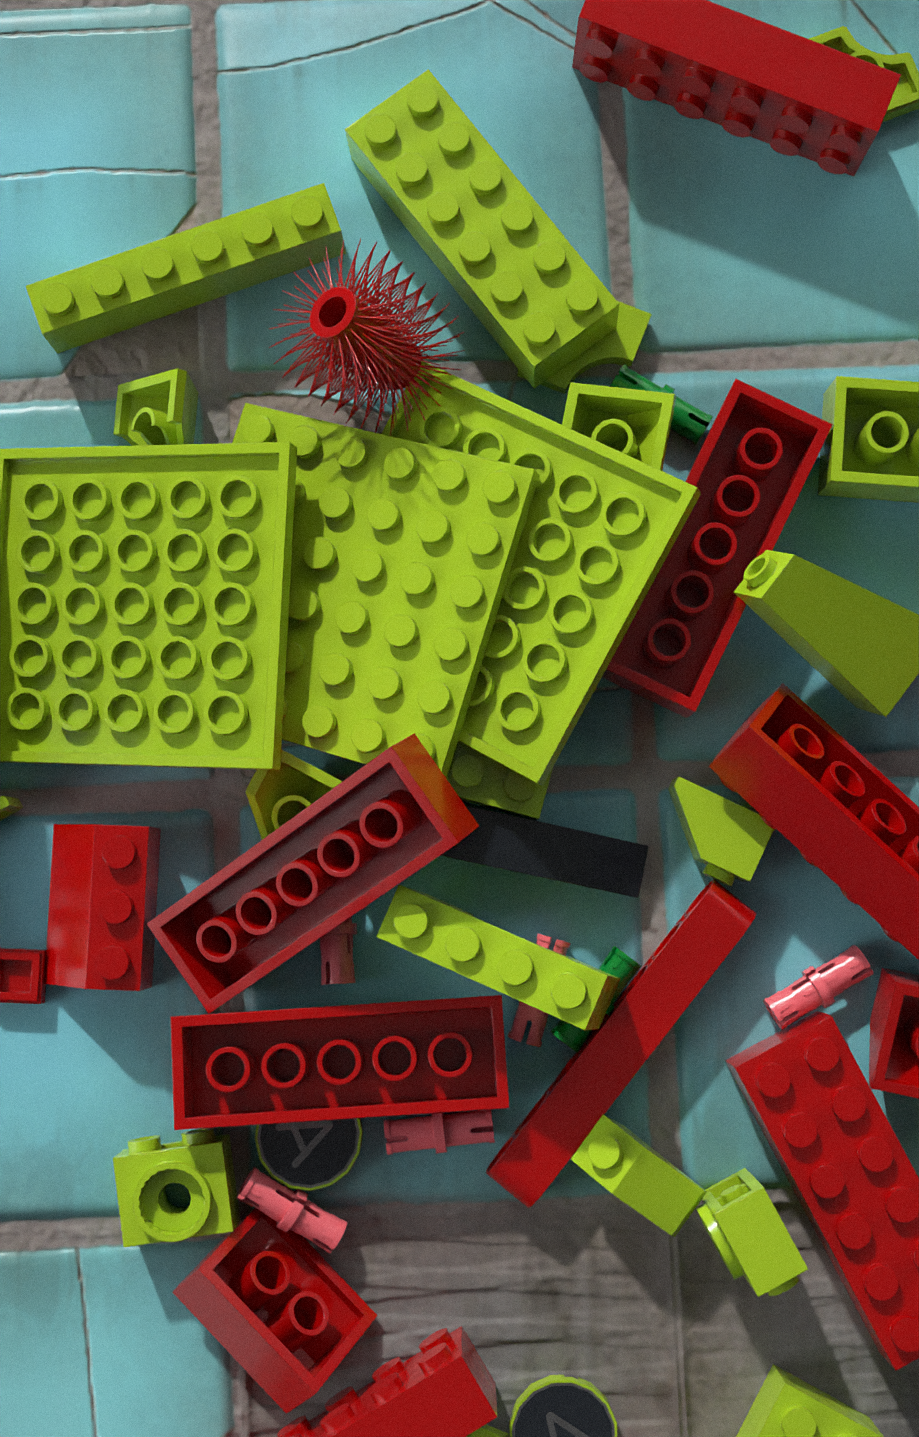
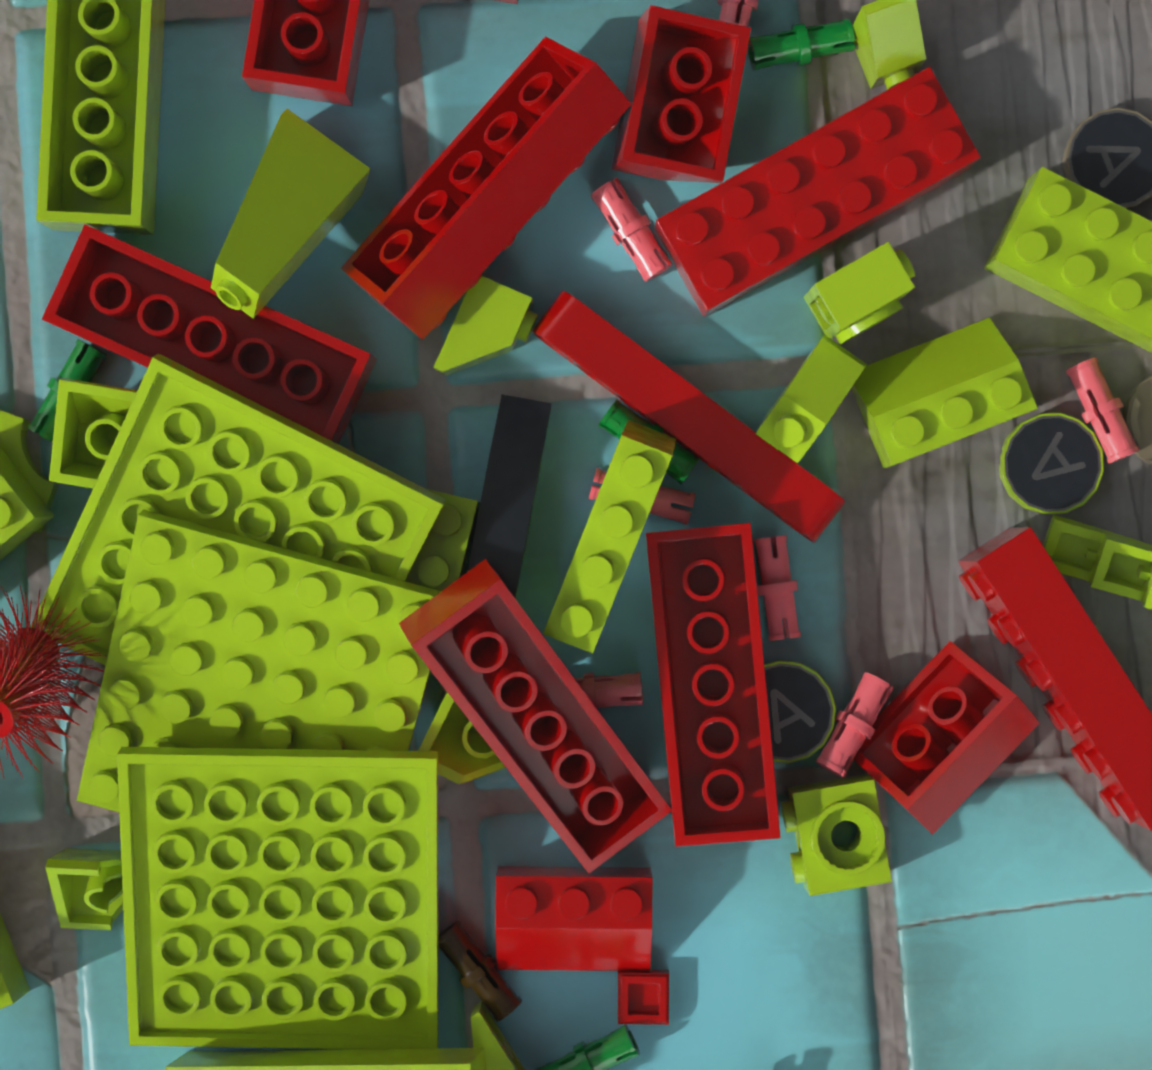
camera: 90 degrees left, 5 degrees up
(52, 804) = (478, 971): none -> dark brown pin
(641, 1317) = (941, 392): none -> lime slope

